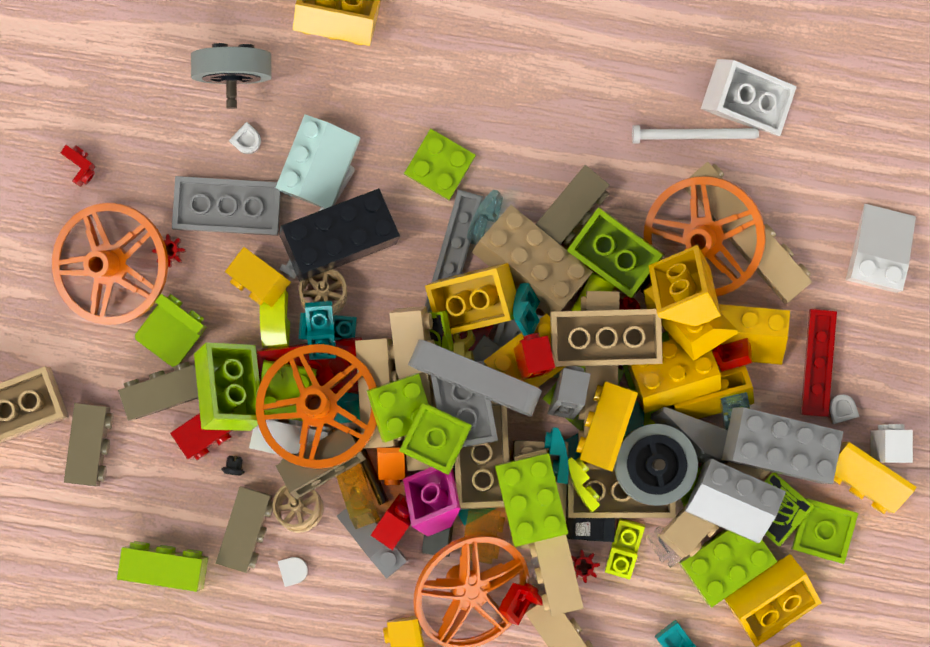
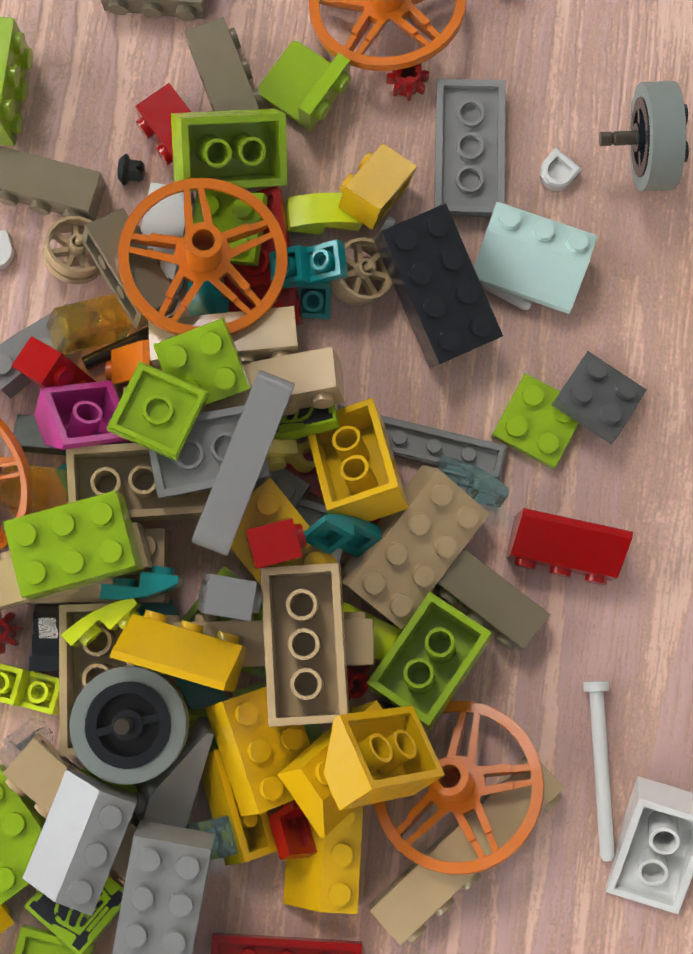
camera: 85 degrees right, 5 degrees down
(425, 119) = (599, 397): none -> dark grey plate
(536, 149) = (568, 546): none -> red slope

